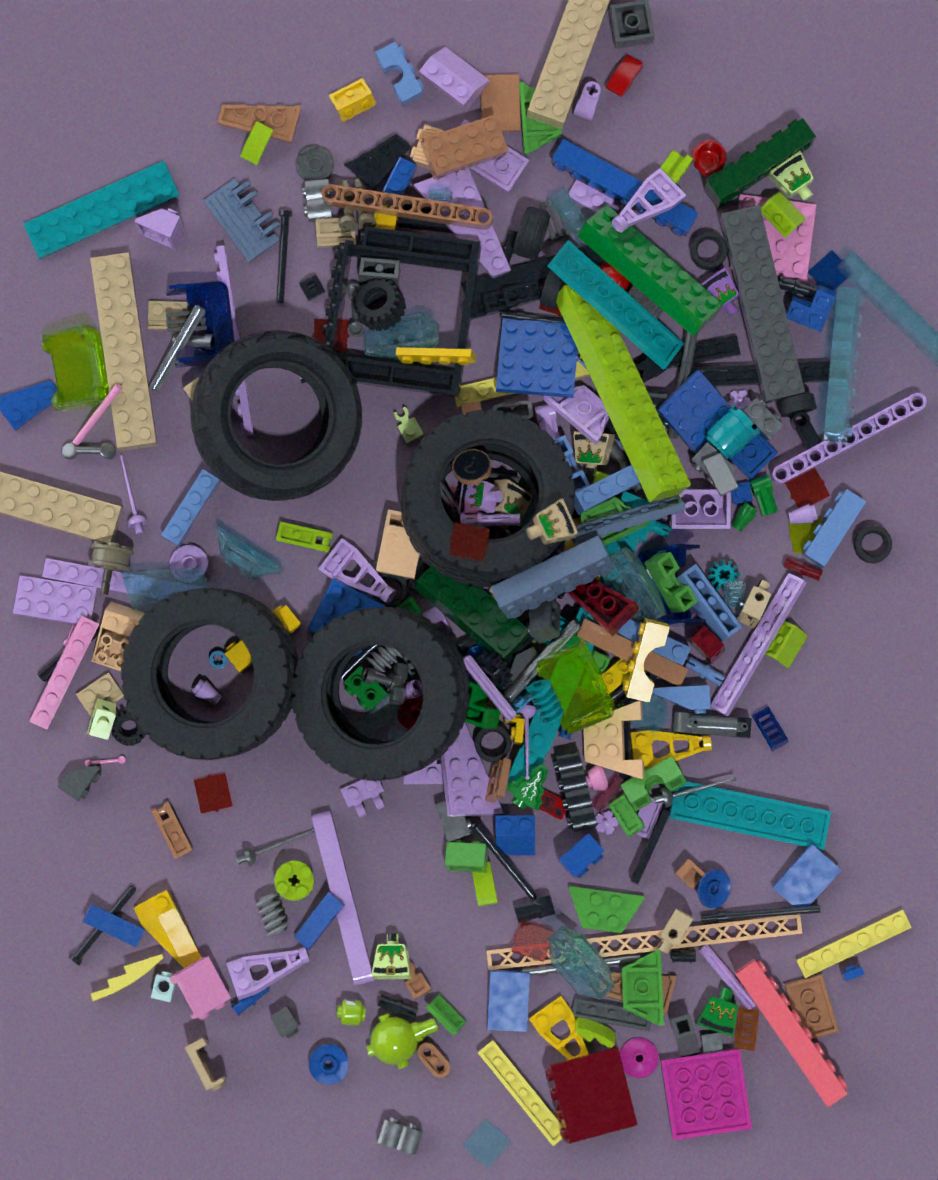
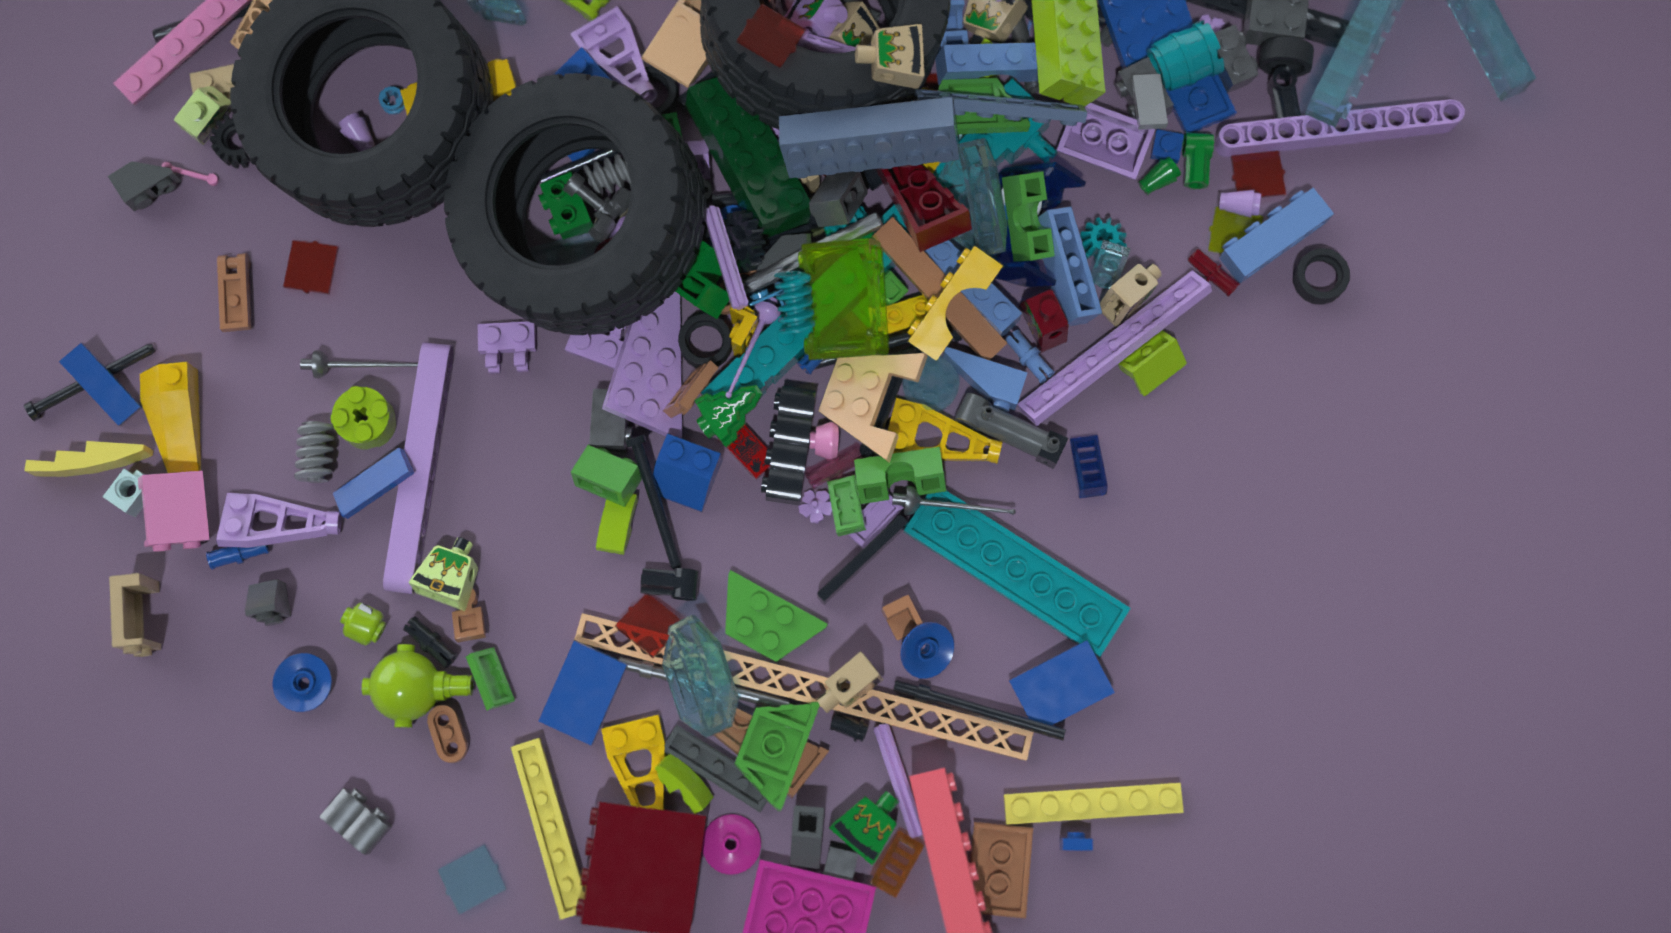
camera: 25 degrees right, 5 degrees down
(581, 855) = (762, 533): blue brick -> none

